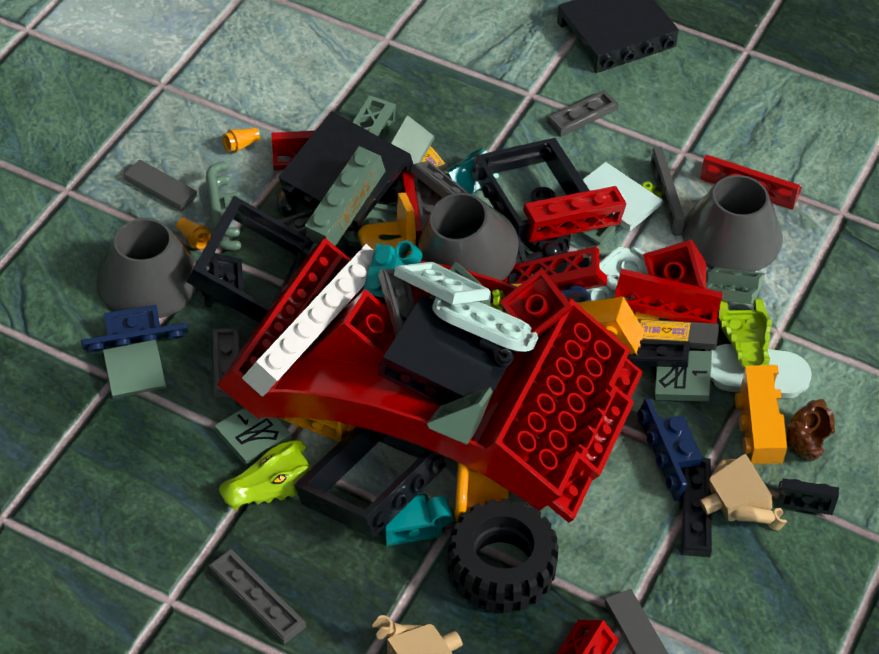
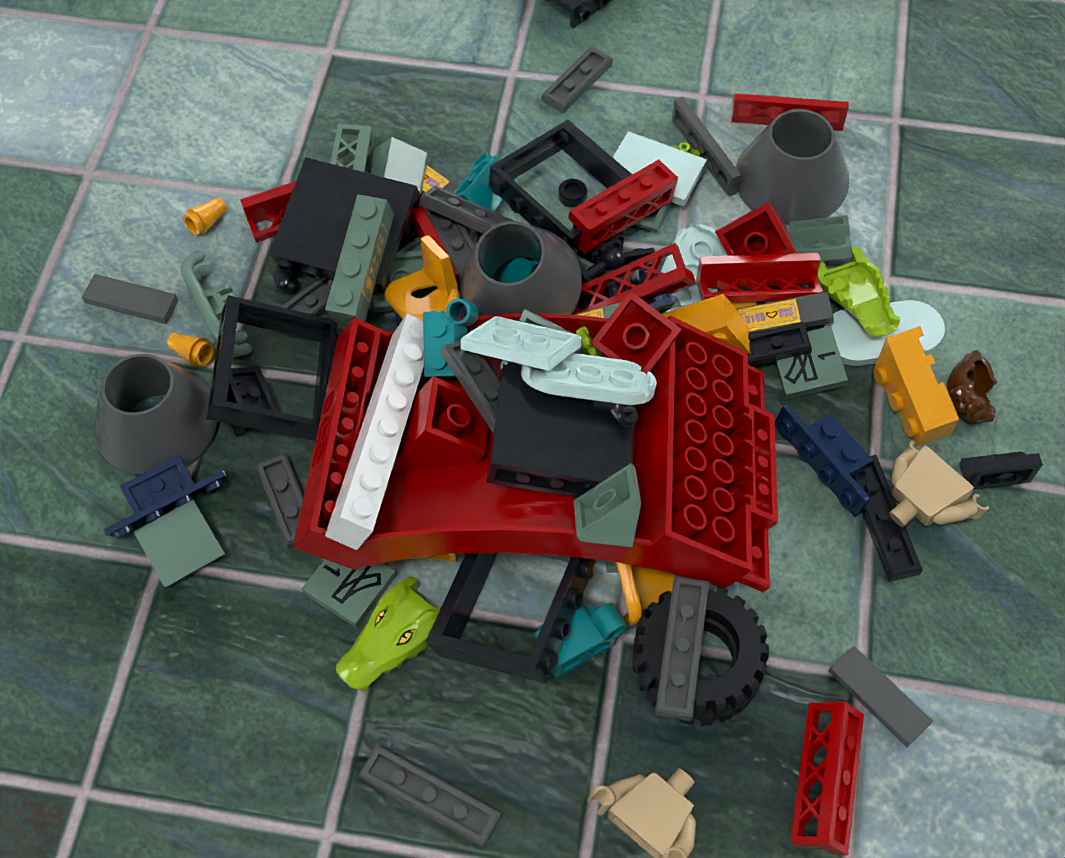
camera: 15 degrees left, 10 degrees up
(485, 538) = (682, 649): none -> dark grey tile

